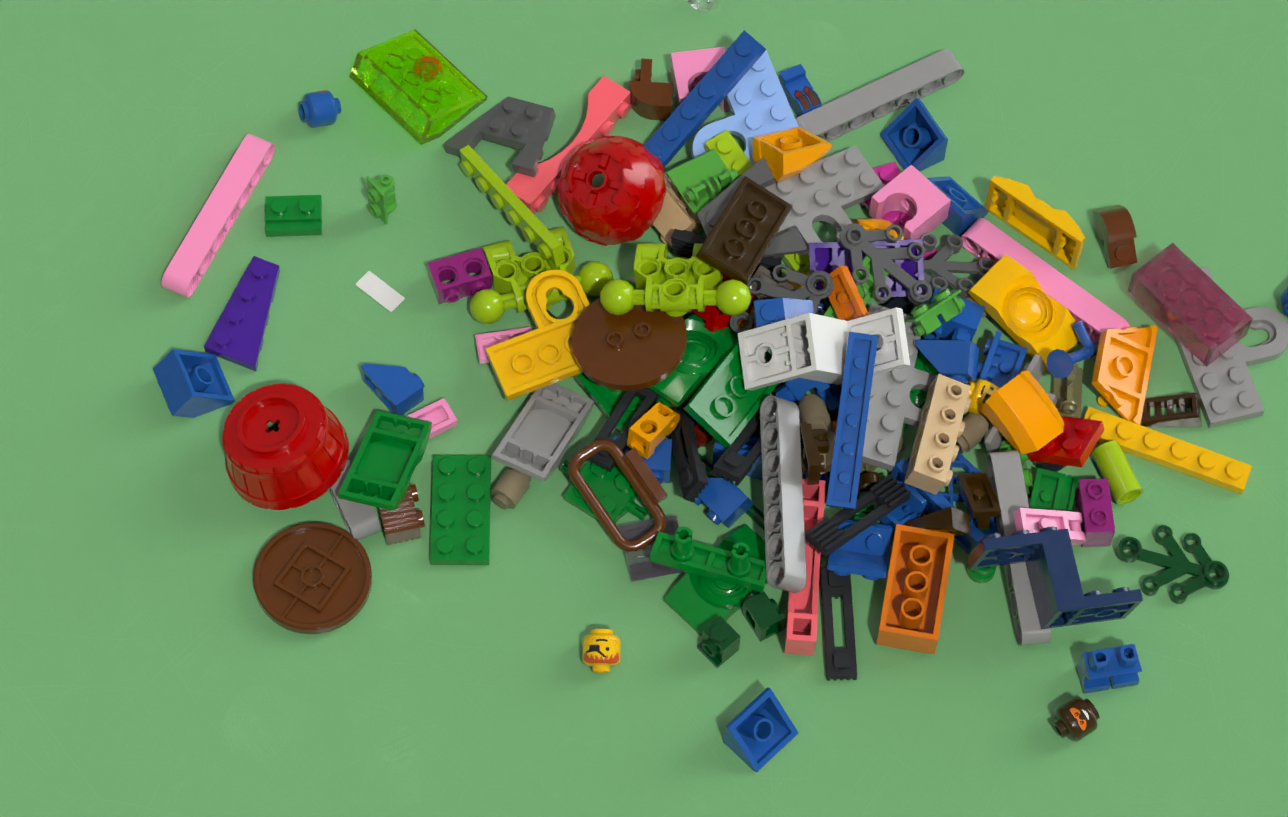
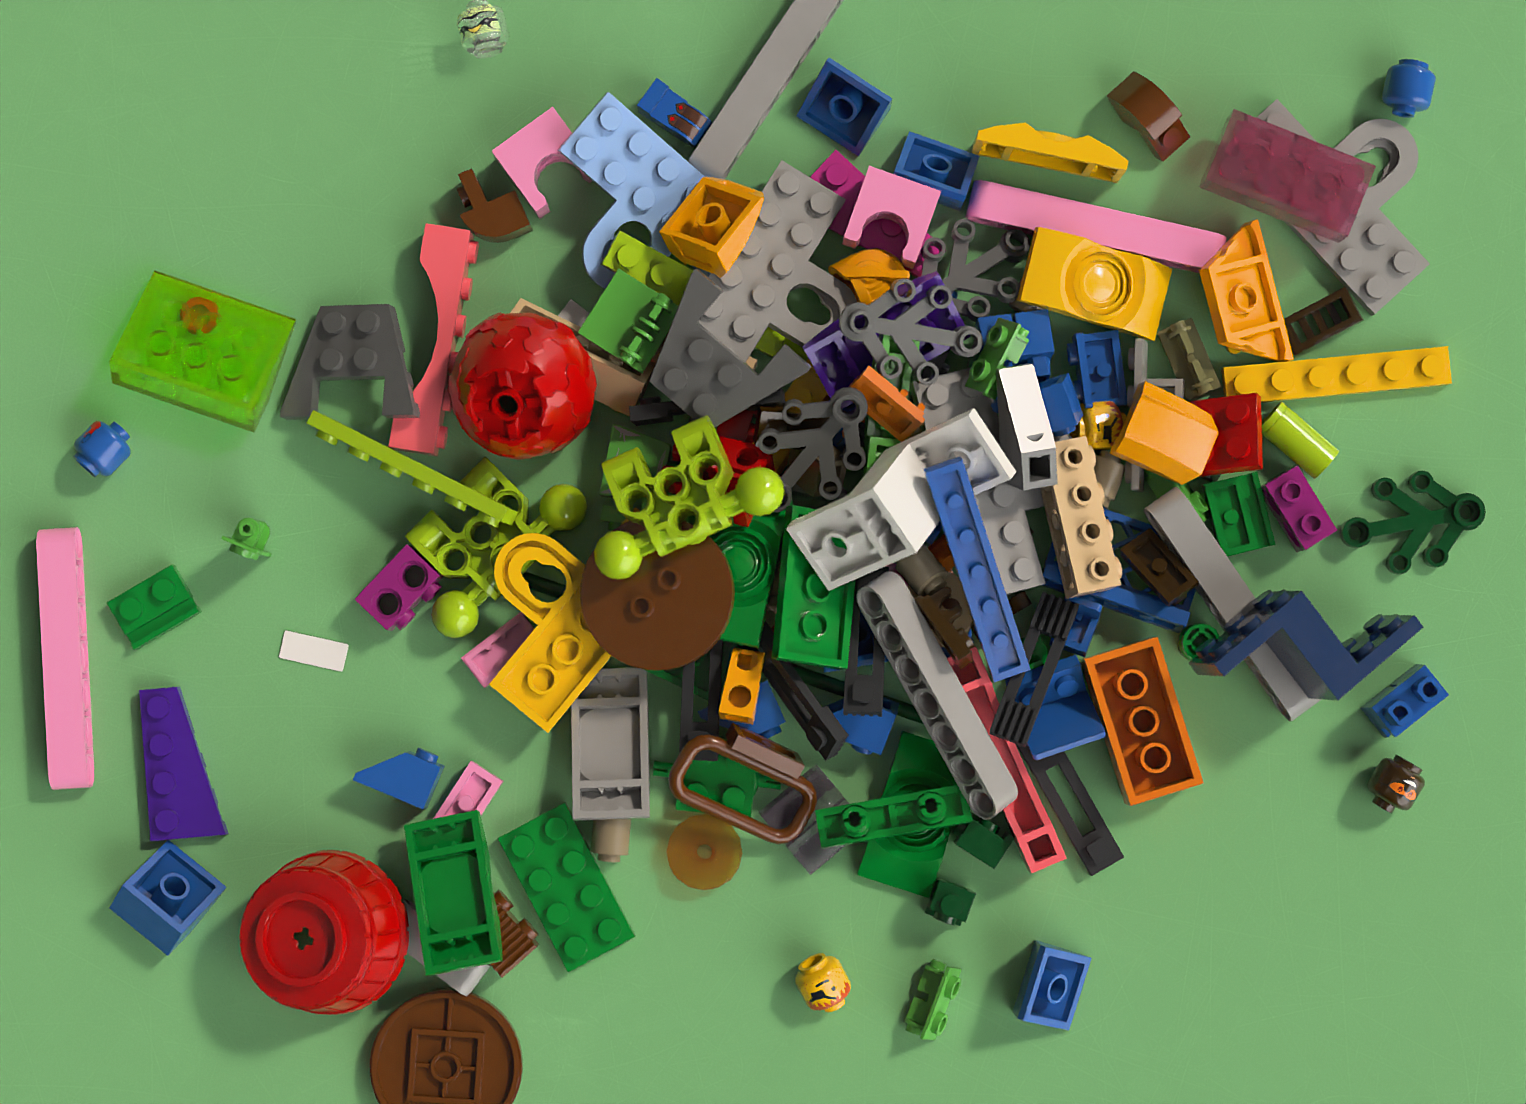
camera: 25 degrees left, 25 degrees up
(567, 518) = (698, 871): none -> clear orange plate
(682, 695) = (930, 1014): none -> bright green hinge
(705, 97) = (568, 202): blue plate -> none
(744, 231) = (726, 390): dark brown tile -> none
(780, 309) = (827, 472): blue slope -> none
(929, 356) = (1025, 428): none -> slope
(945, 520) = (1142, 628): dark brown slope -> none
(1037, 519) = (1261, 569): bright pink plate -> none
(1061, 363) = (1177, 348): blue piece -> none

